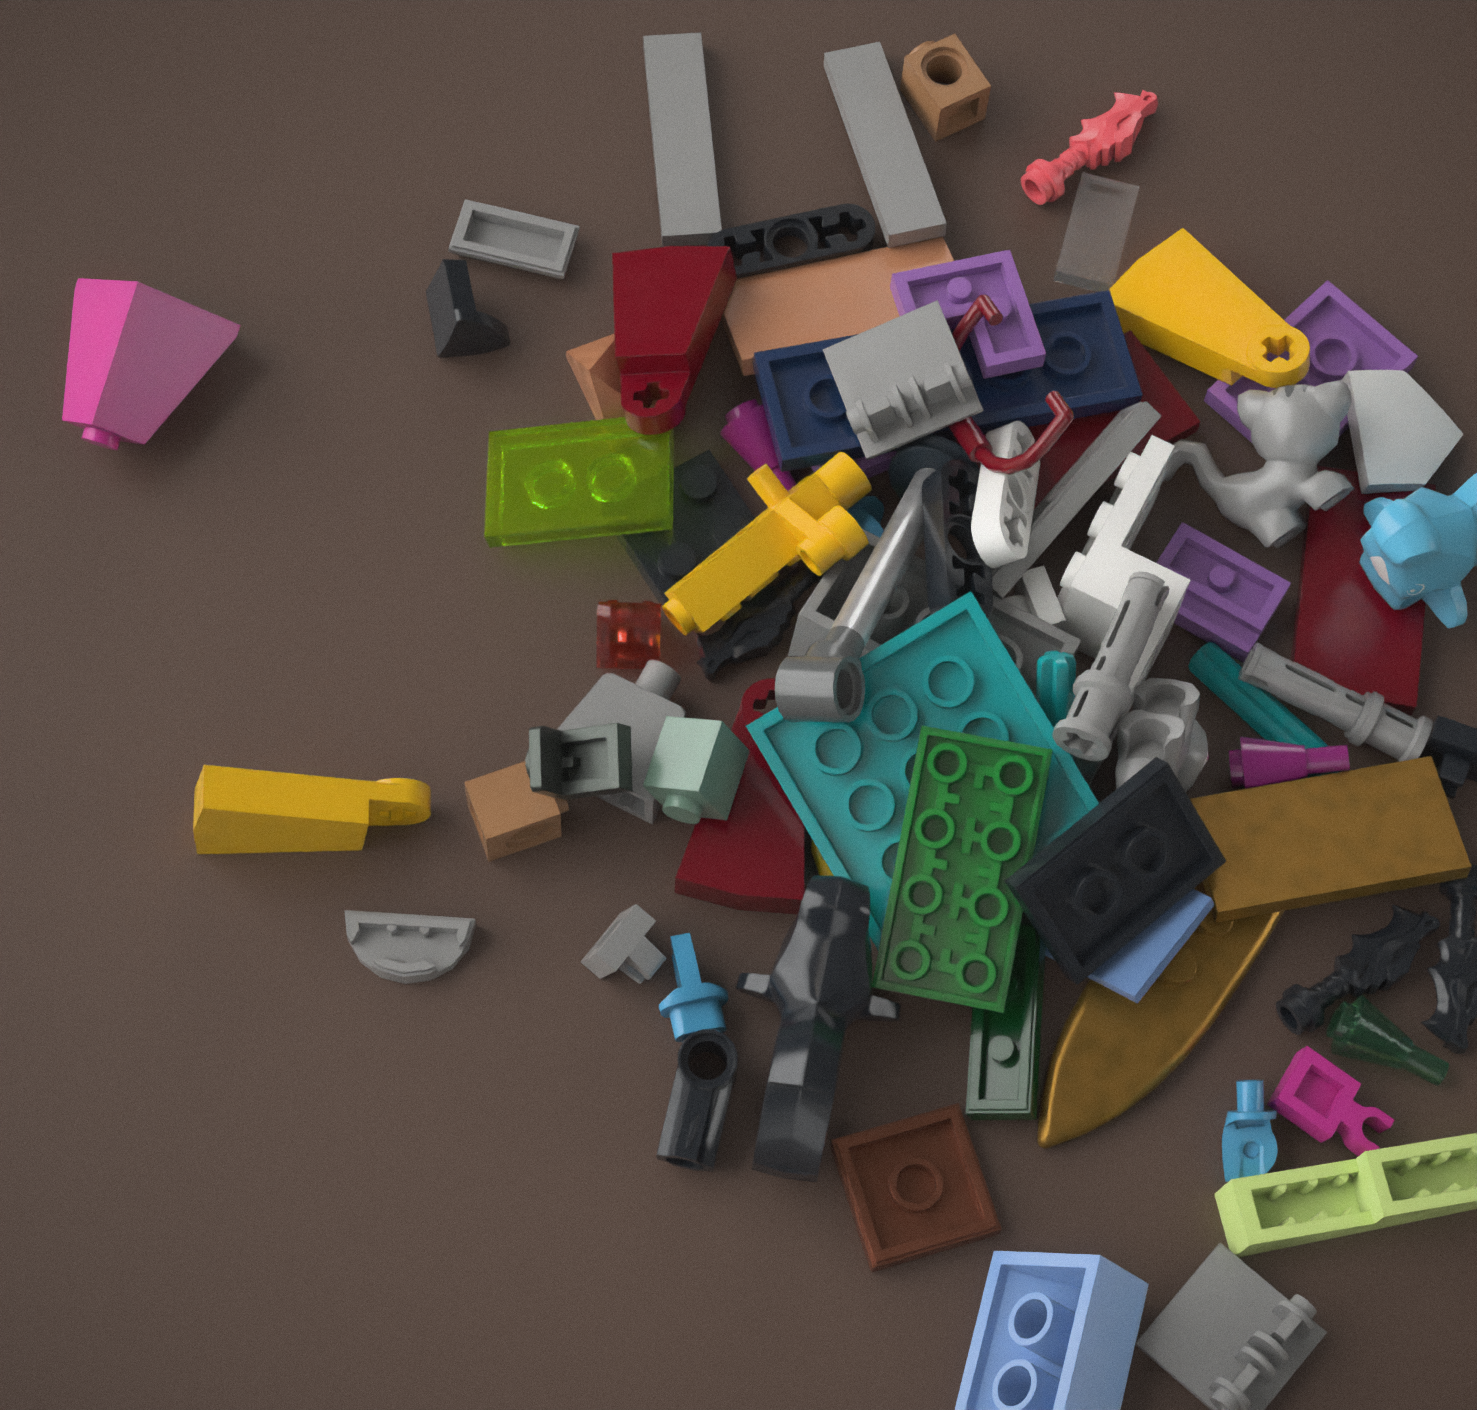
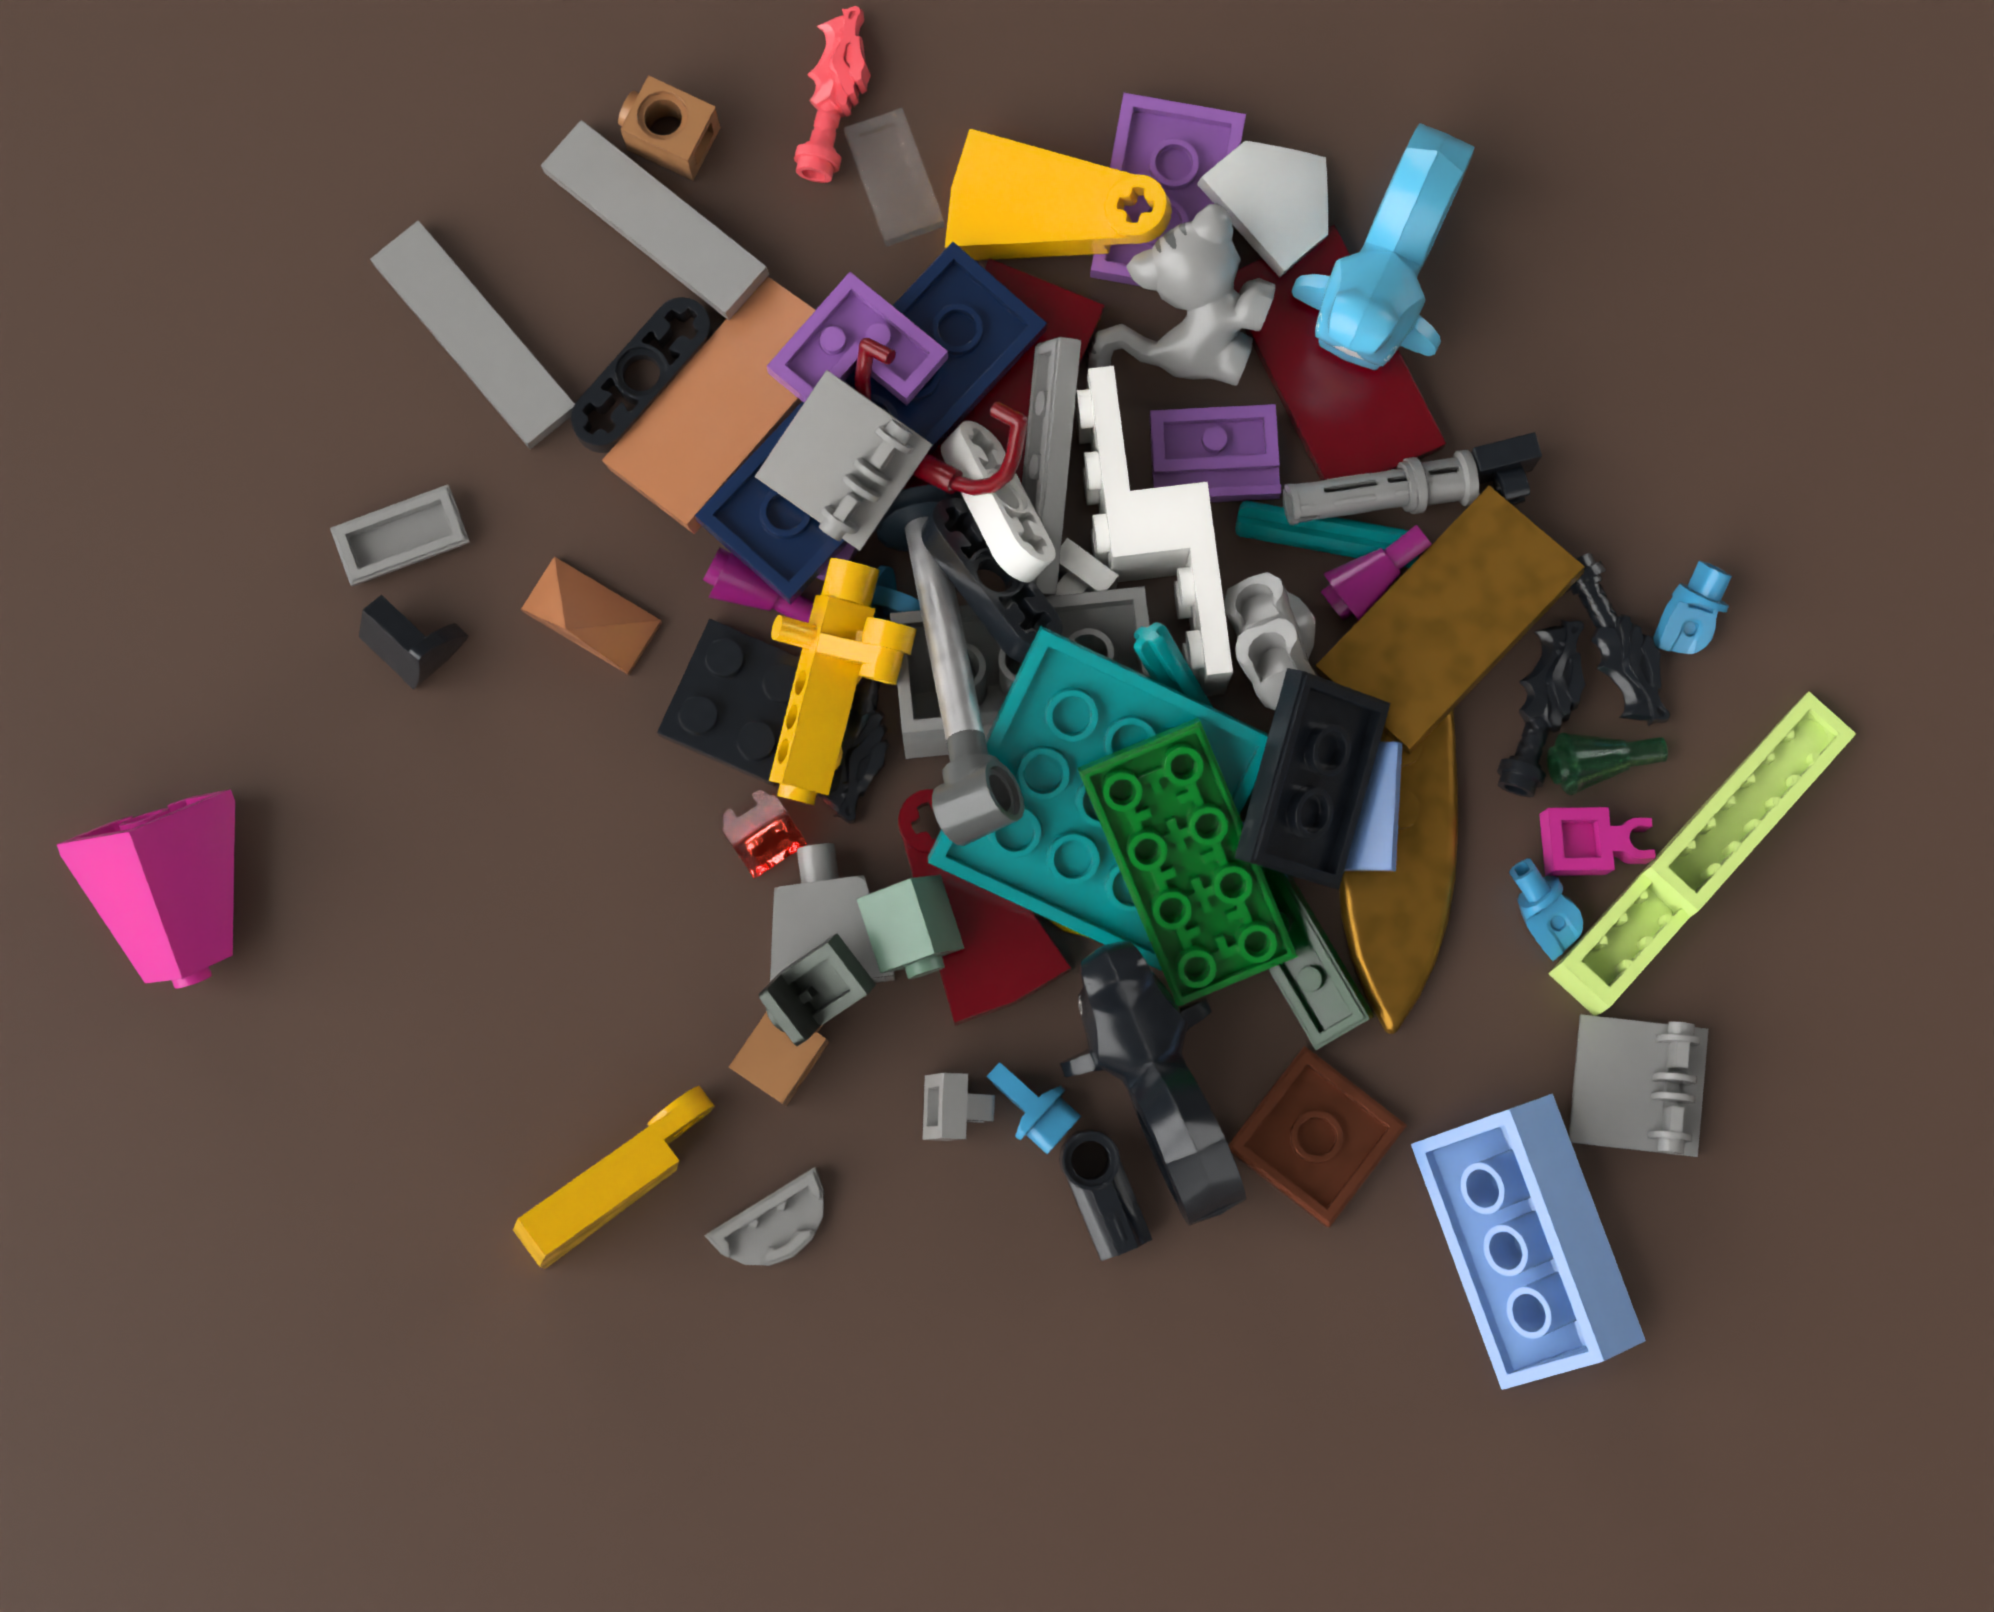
camera: 30 degrees left, 15 degrees up
(577, 482) = (623, 726): clear neon green tile -> none
(664, 325) = (594, 534): dark red piece -> none
(1104, 689) = (1206, 638): light grey pin -> none

